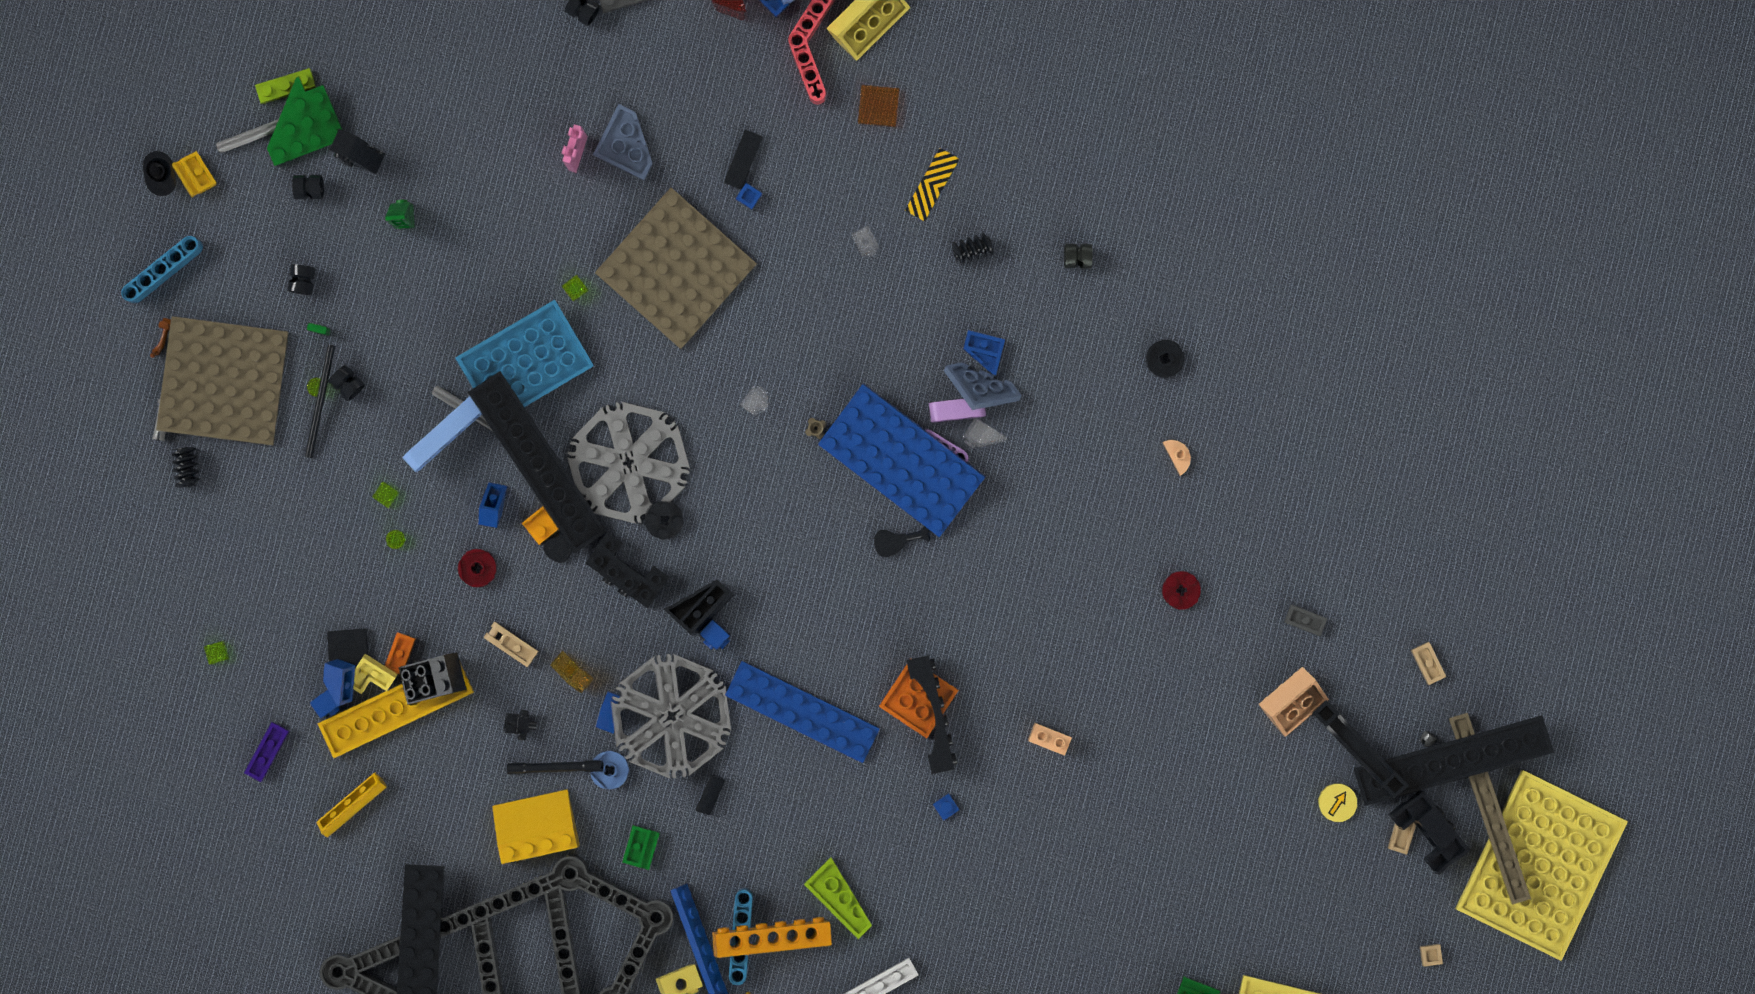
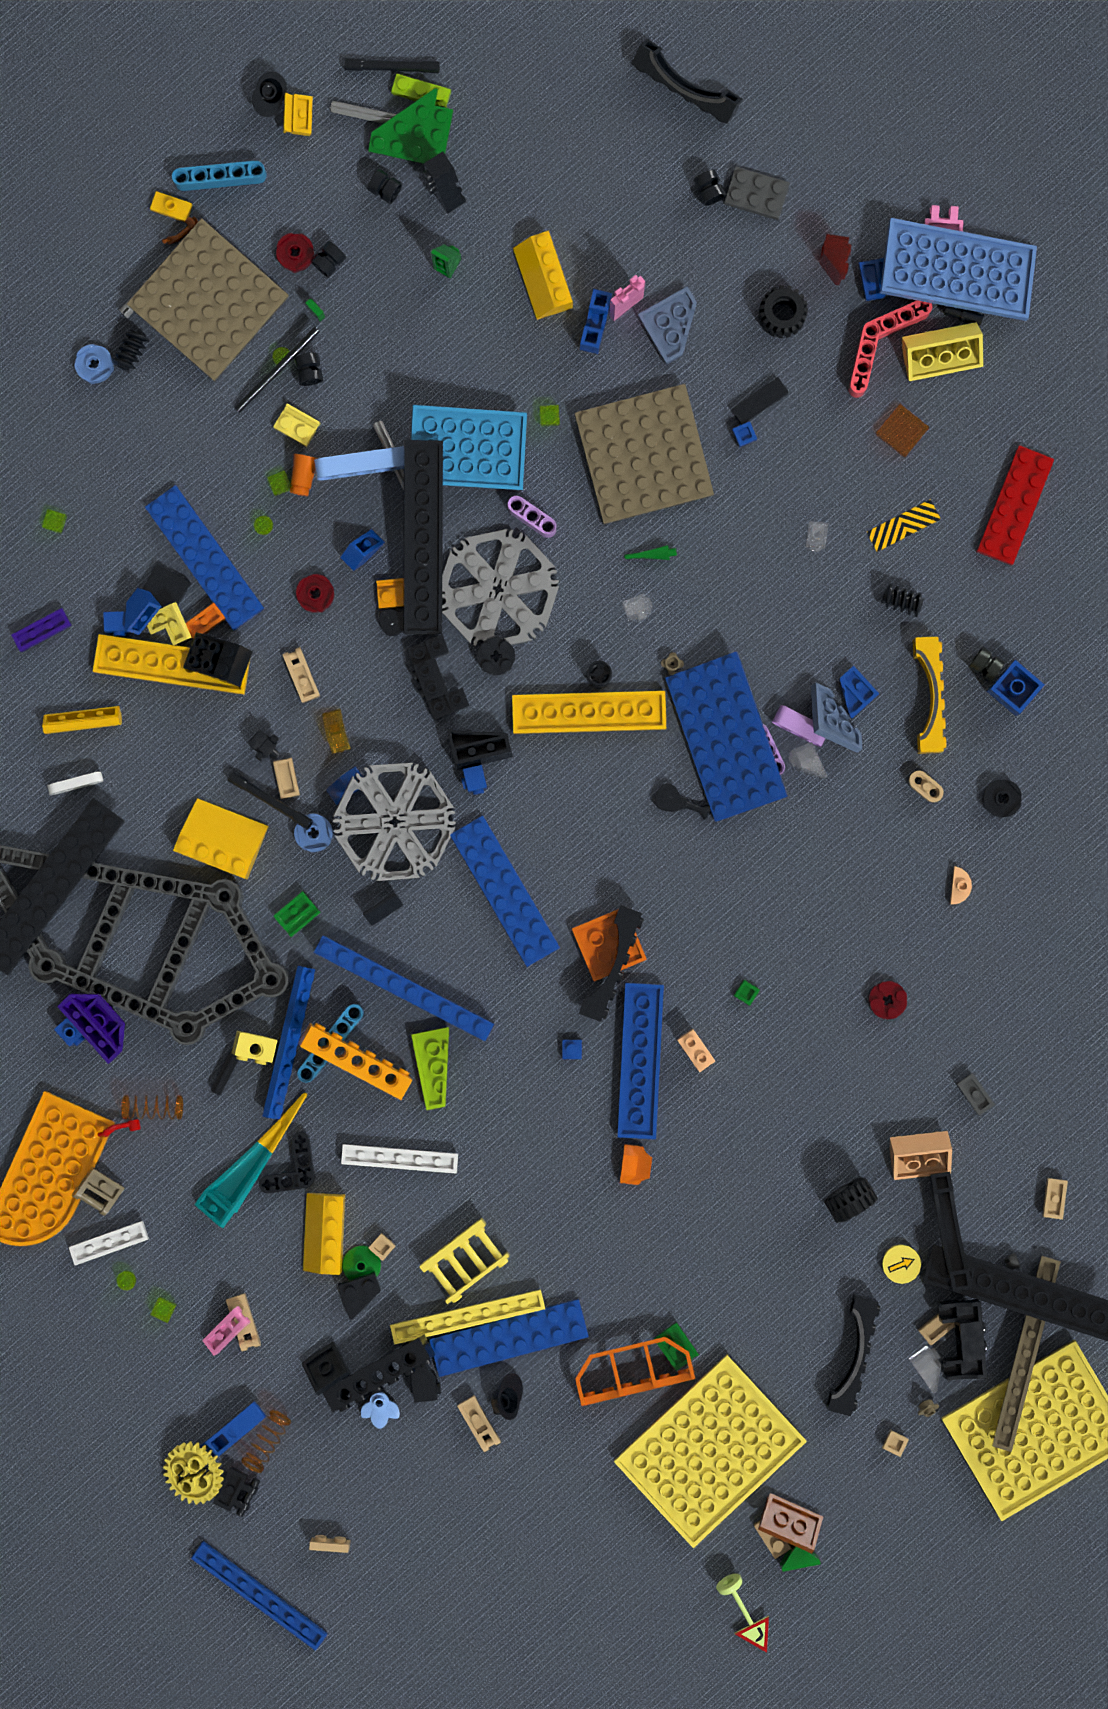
camera: 35 degrees right, 0 degrees up
(138, 322) = (171, 206): none -> yellow plate
(156, 488) = (96, 353): none -> medium blue plate
(219, 97) = (360, 64): none -> black piece
(263, 282) = (284, 252): none -> dark red plate
(363, 599) = (204, 557): none -> blue plate
(367, 436) = (296, 425): none -> light yellow plate
(381, 861) = (75, 783): none -> white beam
(400, 475) = (302, 474): none -> orange plant
(491, 174) = (543, 275): none -> yellow slope
(556, 739) = (286, 778): none -> tan tile
(562, 184) = (596, 321): none -> blue arch
(625, 386) = (527, 508): none -> lavender beam
(707, 57) = (788, 297): none -> black tyre
(744, 342) = (659, 553): none -> green piece
(760, 478) = (599, 674): none -> black wheel
(771, 849) = (404, 988): none -> blue brick
(773, 515) = (589, 712): none -> yellow plate
(1009, 778) = (640, 1061): none -> blue plate
(1014, 106) = (1015, 505): none -> red plate
(1021, 278) = (927, 652): none -> yellow arch
(1059, 662) = (746, 992): none -> green tile
(1062, 868) = (635, 1165): none -> orange slope
(1095, 391) = (925, 786): none -> tan plate
(1114, 260) = (1015, 688): none -> blue brick
(1260, 778) = (850, 1200): none -> black tyre
(1362, 947) = (842, 1398): none -> black arch
(1415, 873) = (927, 1366): none -> clear slope
(1438, 908) = (927, 1408): none -> dark tan plate

